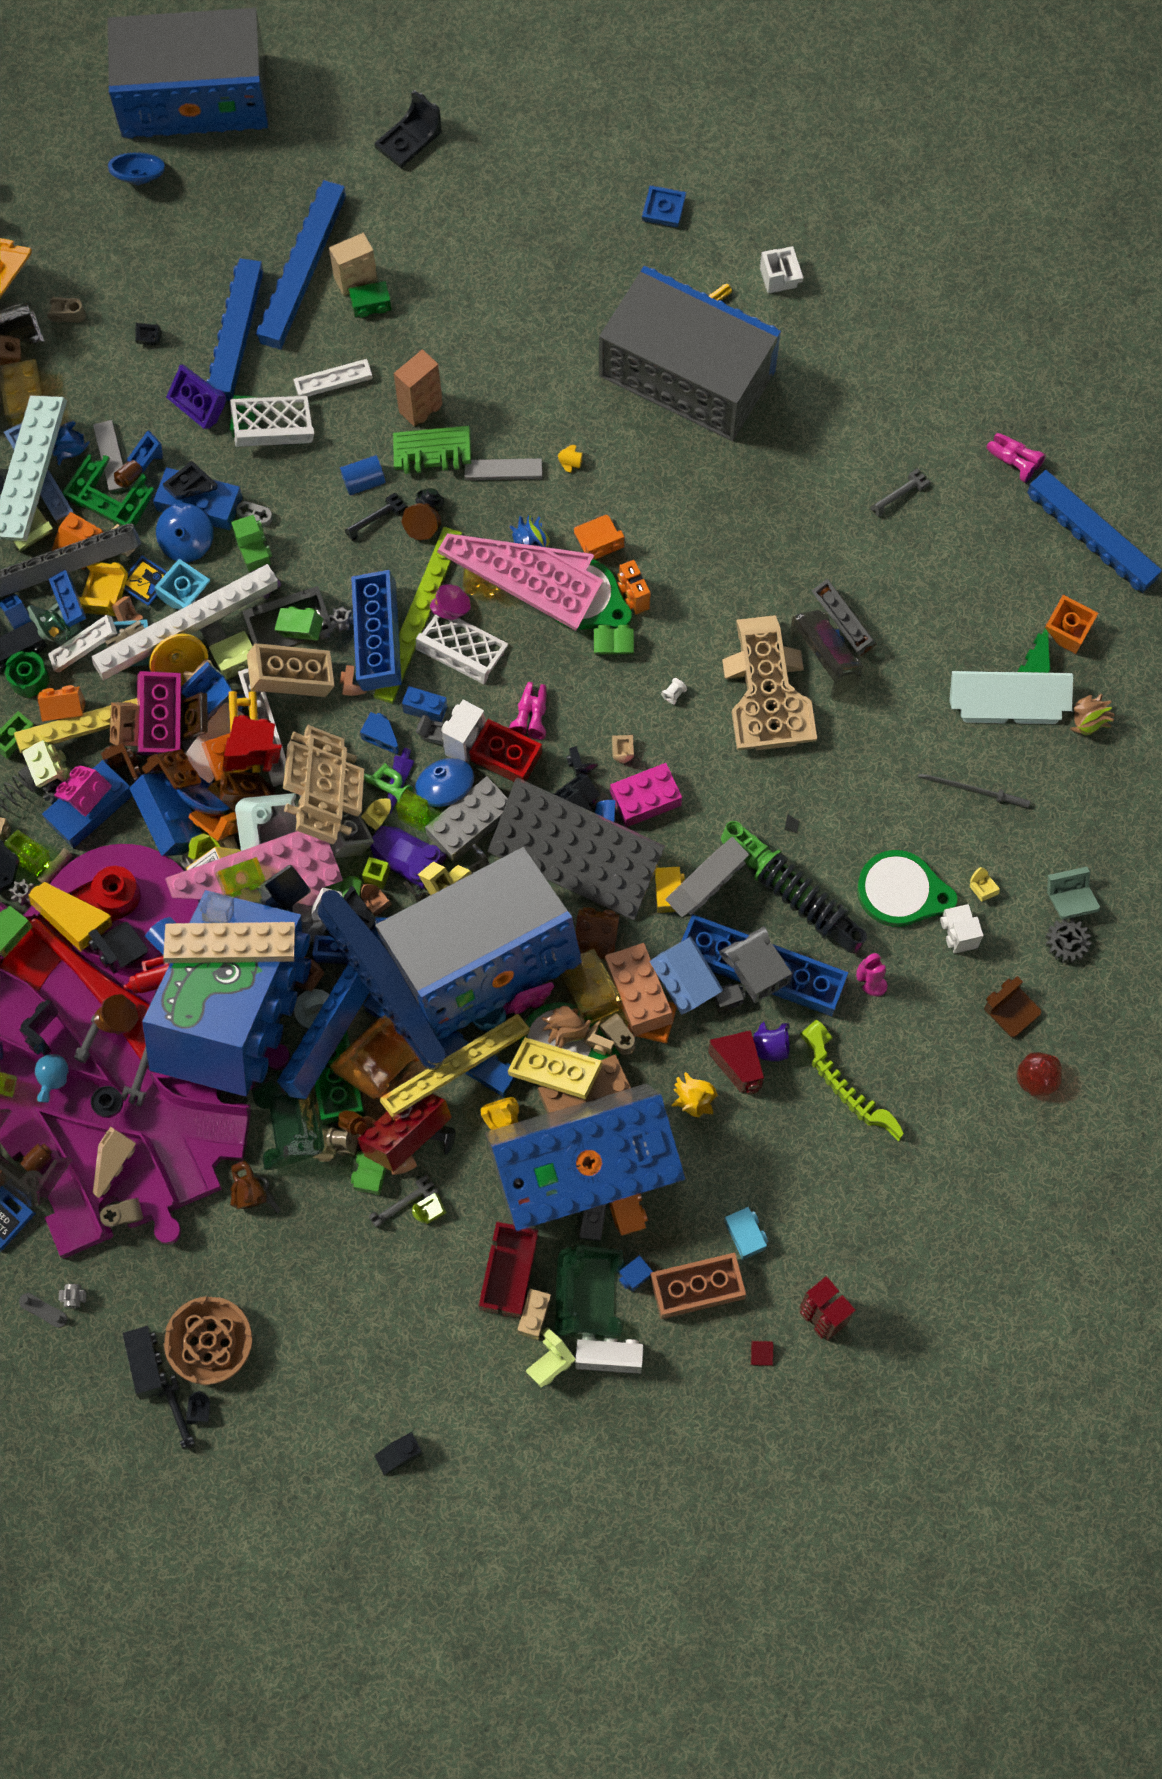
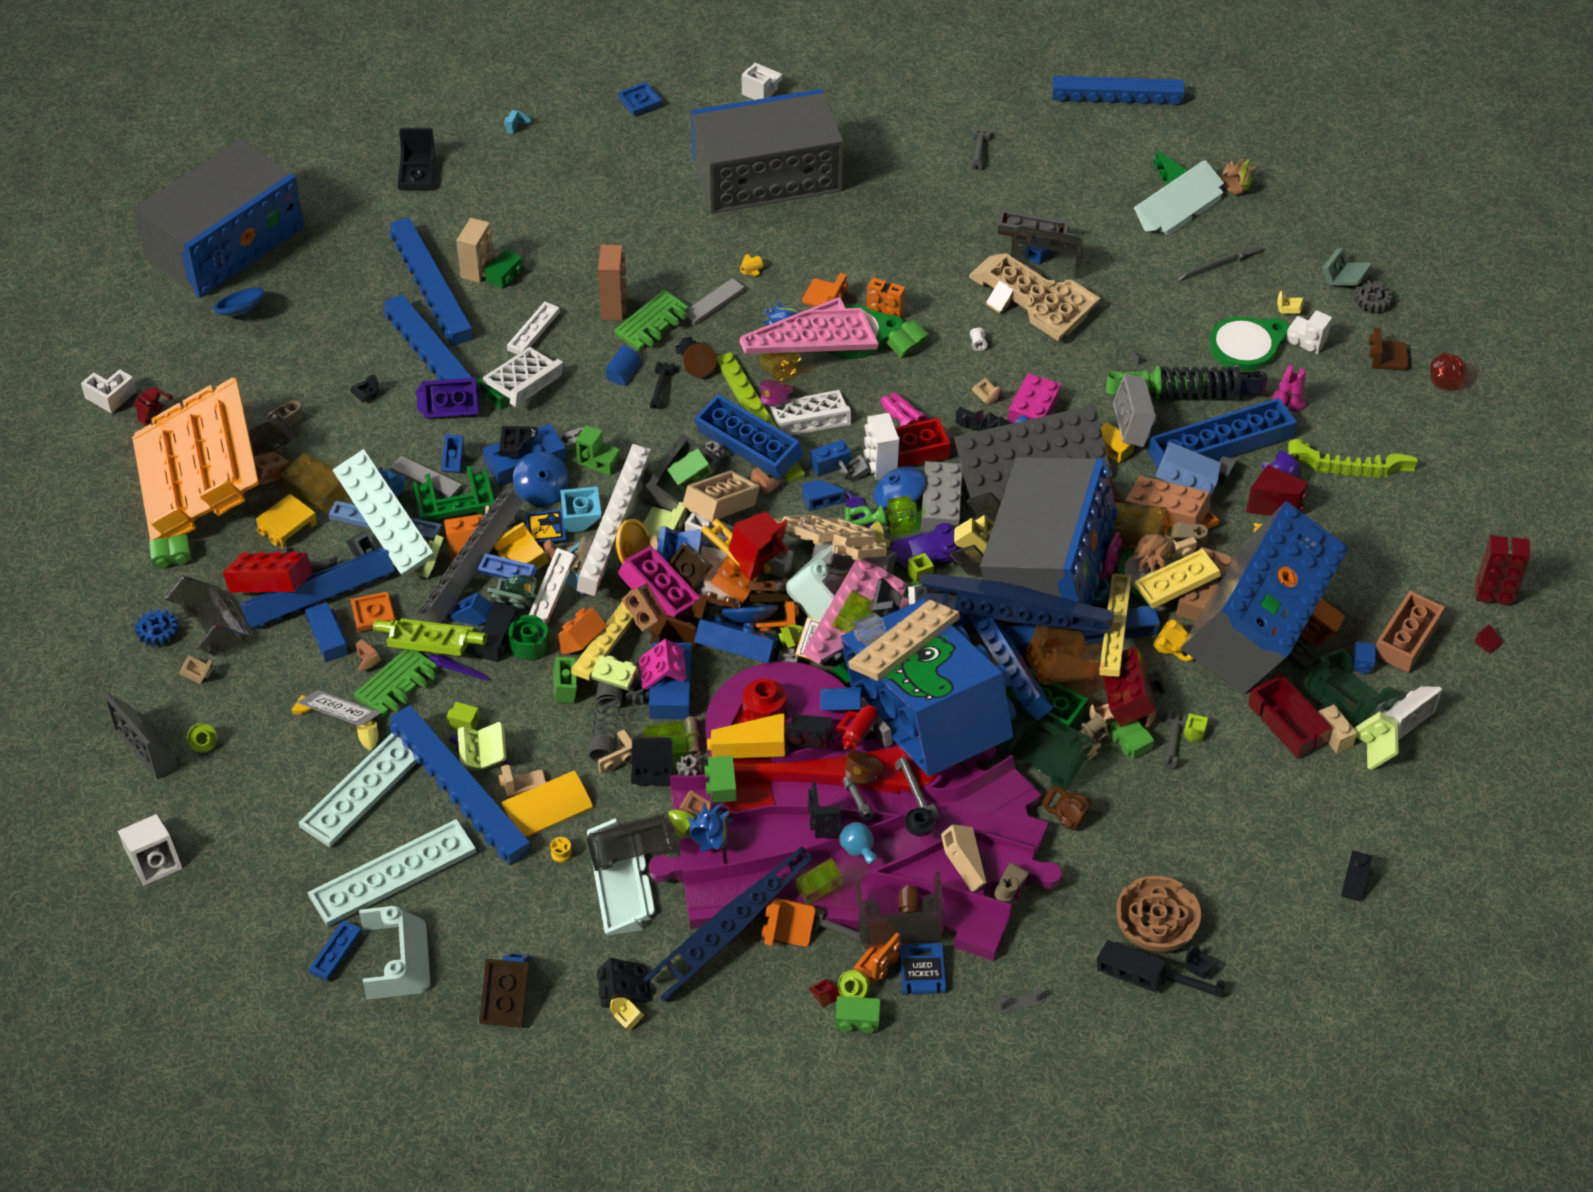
camera: 45 degrees left, 20 degrees down
(72, 1296) = (1032, 970): light grey gear -> none
(127, 474) = (456, 473): reddish brown brick -> none
(352, 1122) = (1094, 706): reddish brown arm -> none
(535, 147) = (515, 118): none -> medium azure plate
(745, 1232) = (1396, 583): medium azure brick -> none
(757, 965) = (1226, 427): dark grey piece -> none
(1009, 452) = (1021, 82): dark pink piece -> none
(1070, 623) = (1170, 139): orange slope -> none

